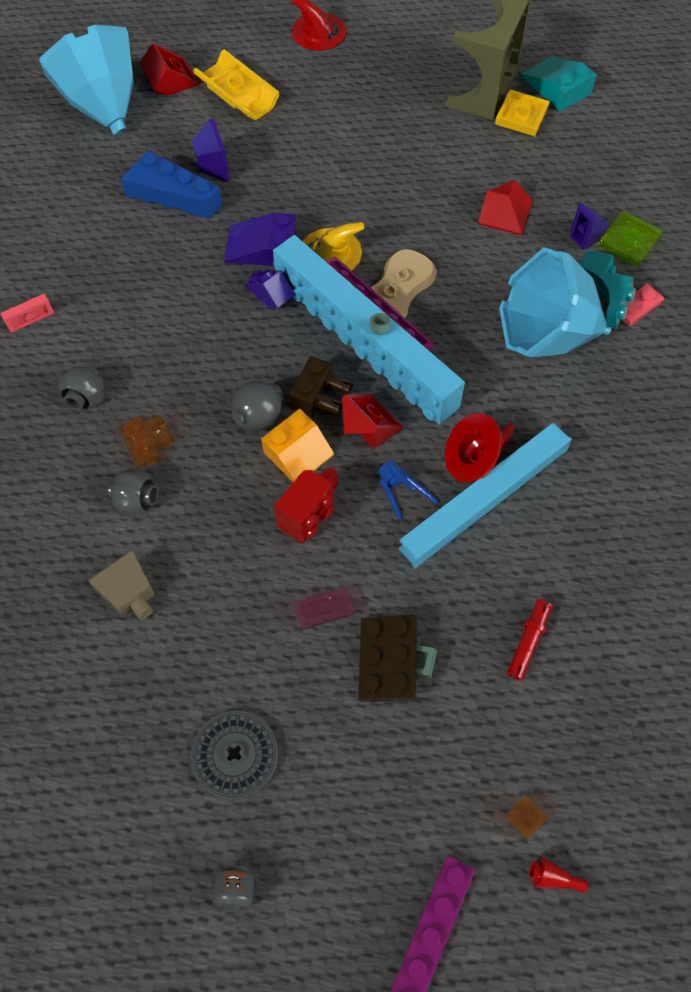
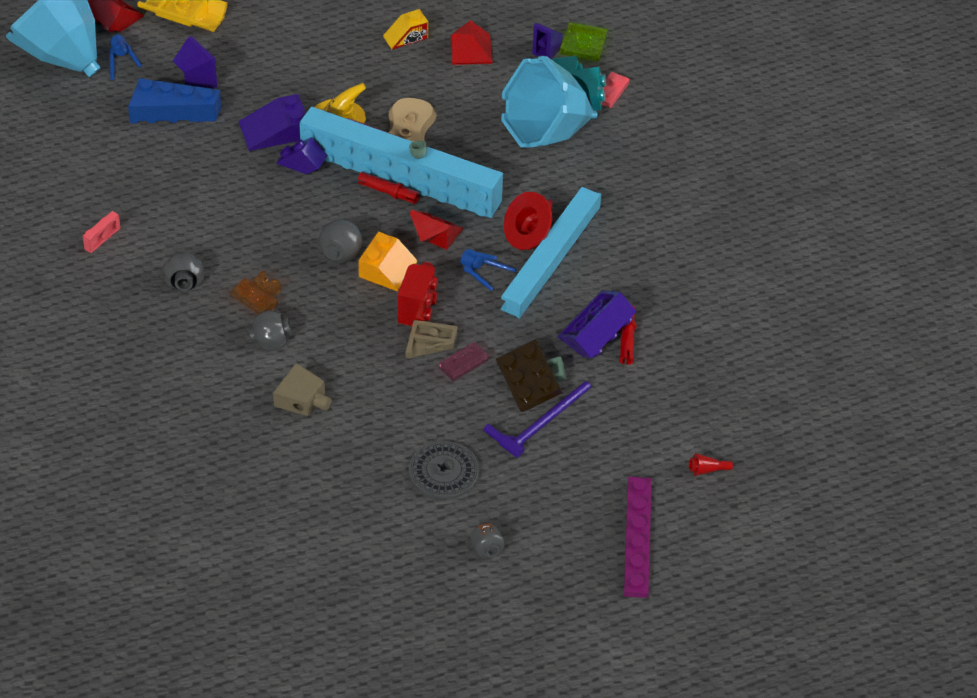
camera: 25 degrees left, 15 degrees down
(155, 112) = (120, 47): none -> blue plant
(299, 563) = (430, 338): none -> dark tan wing
(312, 385) = (378, 215): dark brown brick -> none
(331, 749) = (515, 445): none -> dark purple bar
(350, 359) = (397, 190): none -> red pin
(446, 171) = (407, 30): none -> yellow slope
(496, 617) = (597, 323): none -> dark purple slope
(525, 817) = (672, 438): clear orange plate -> none

